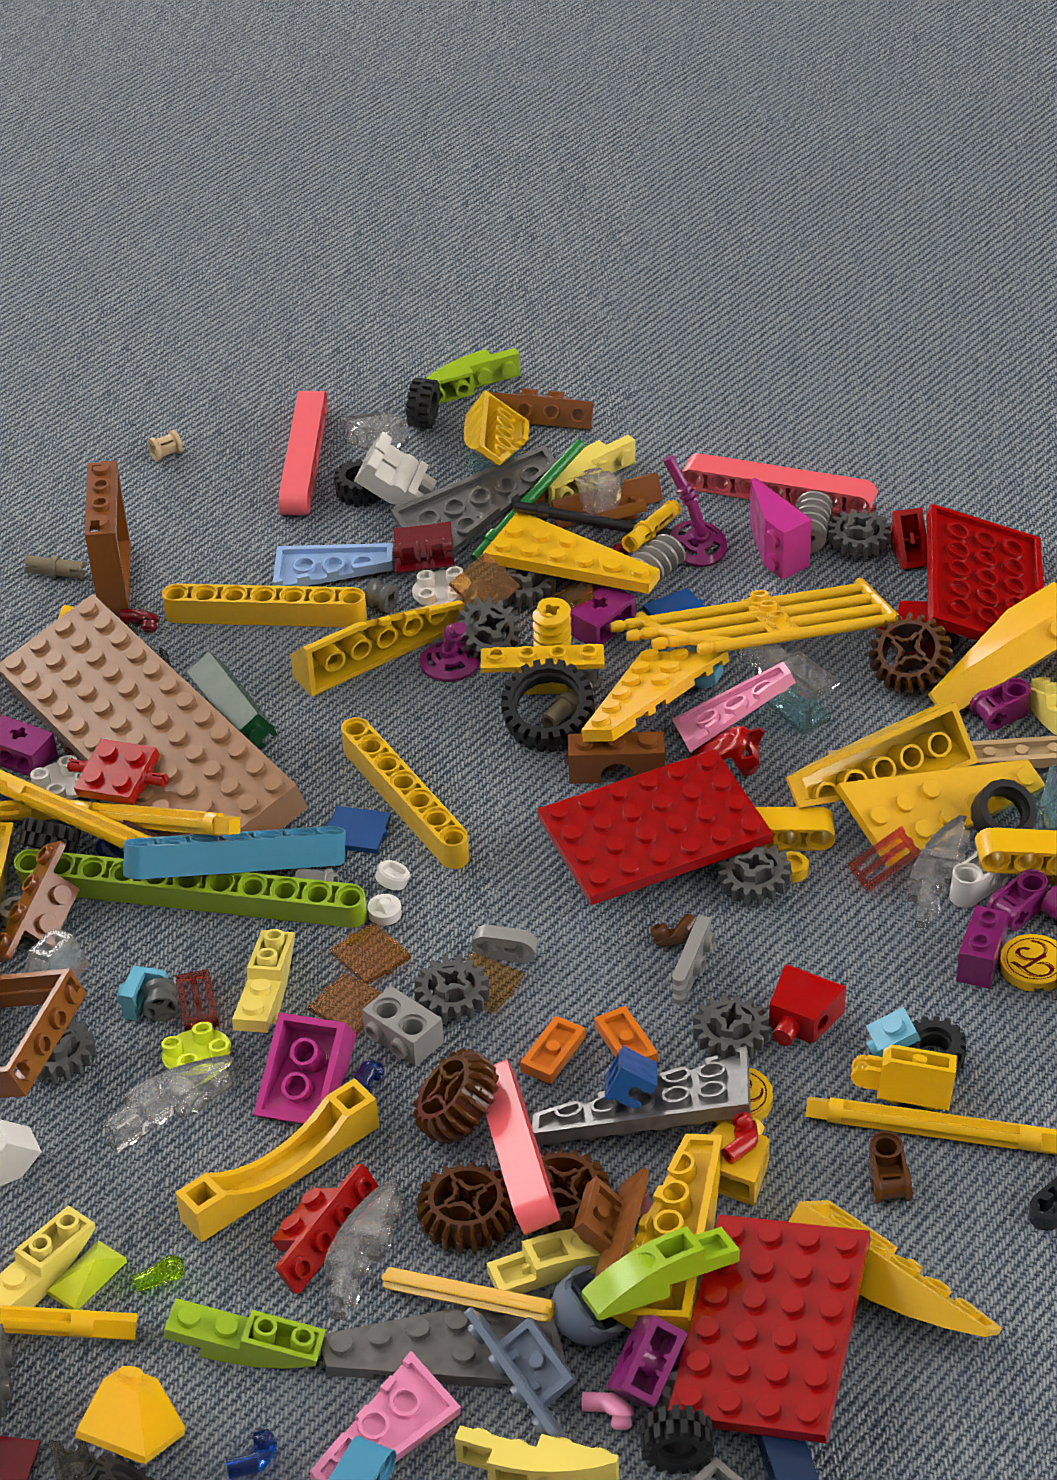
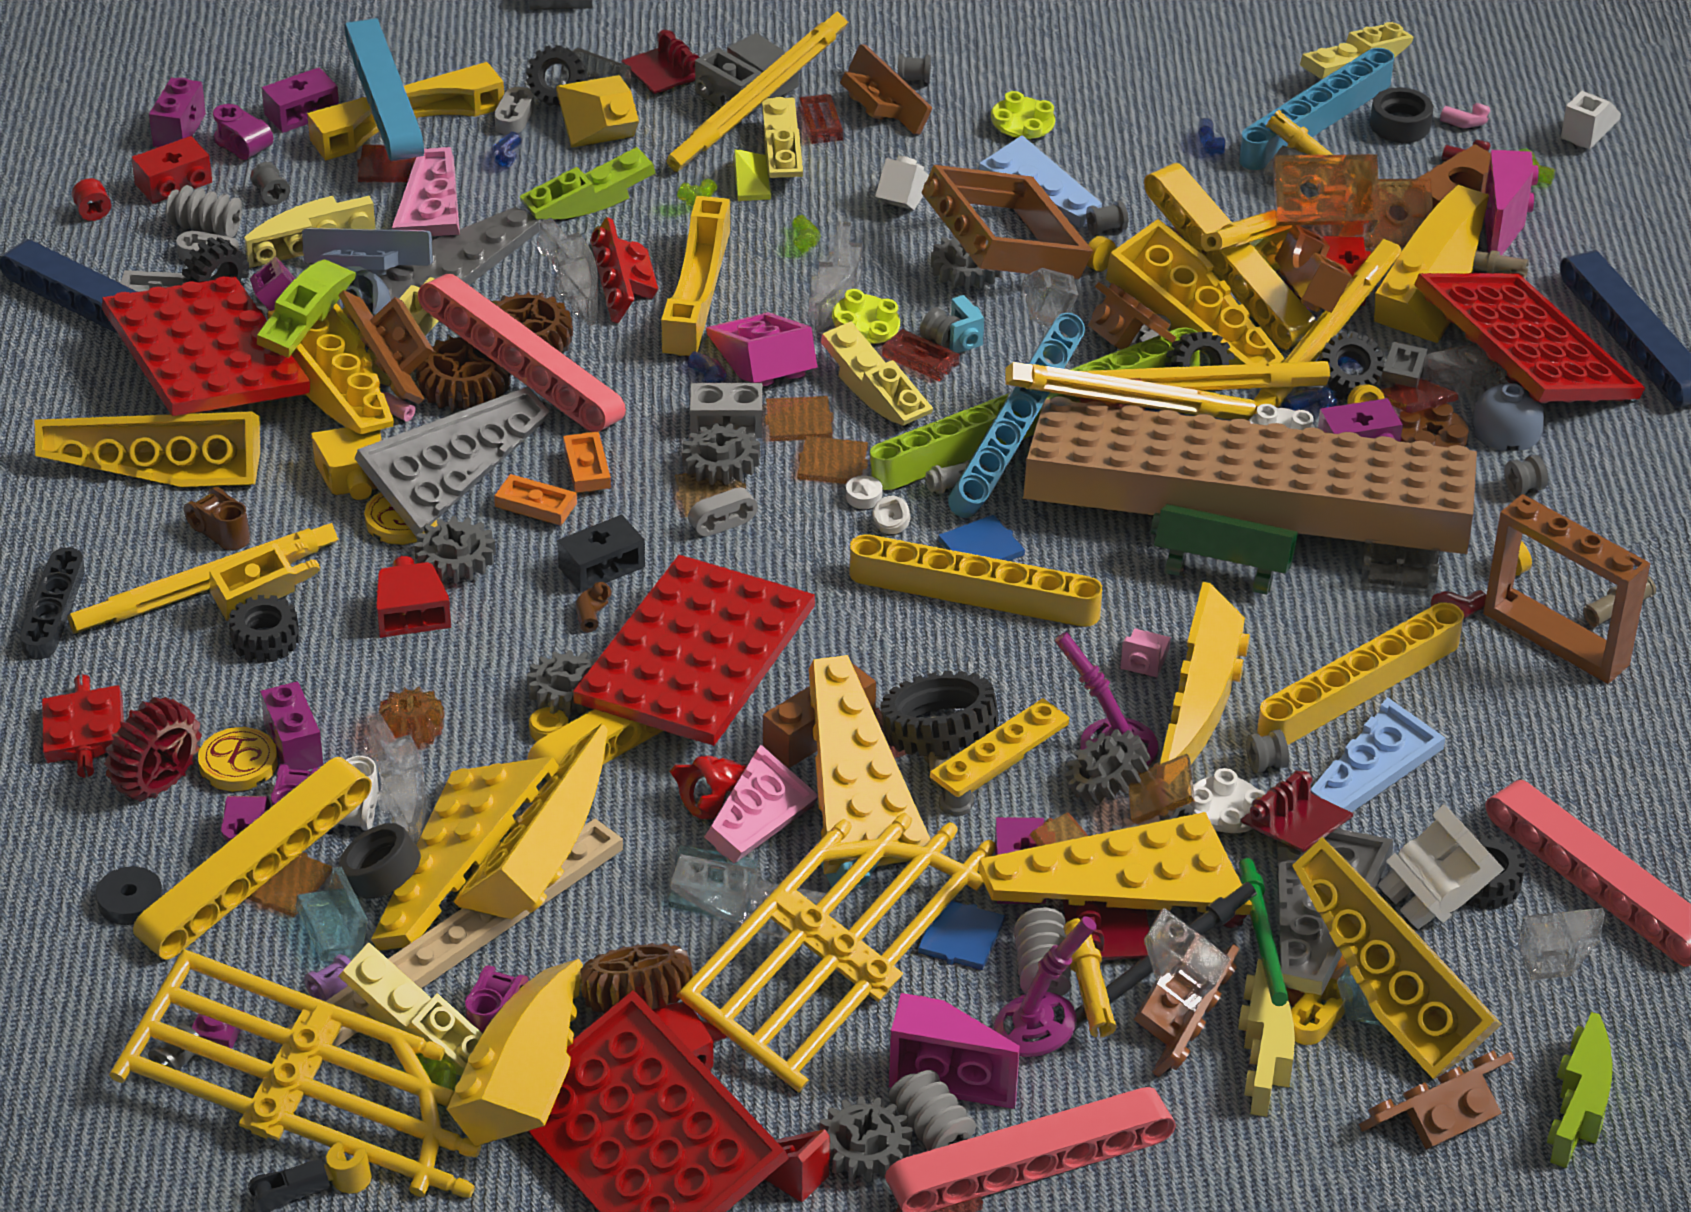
camera: 135 degrees right, 0 degrees up
(117, 772) = (1204, 405): plate -> none
(126, 1168) = (808, 232): none -> clear neon green arm
(362, 695) = (1144, 652): none -> bright pink bracket
(422, 403) = (1559, 993): black tyre -> none
(455, 1096) = (608, 361): reddish brown gear -> none
(468, 1294) = (468, 272): yellow axle -> none
(552, 622) = (1029, 782): yellow piece -> none
(627, 1072) = (484, 447): blue hinge -> none
(628, 959) = (601, 553): none -> black brick
(692, 958) = (546, 582): light grey hinge -> none
(745, 1138) = (344, 443): red arm -> none
(888, 911) = (413, 714): none -> clear orange gear
(891, 1029) = (304, 599): medium azure bracket -> none
(906, 842) = (458, 754): clear red tile -> none

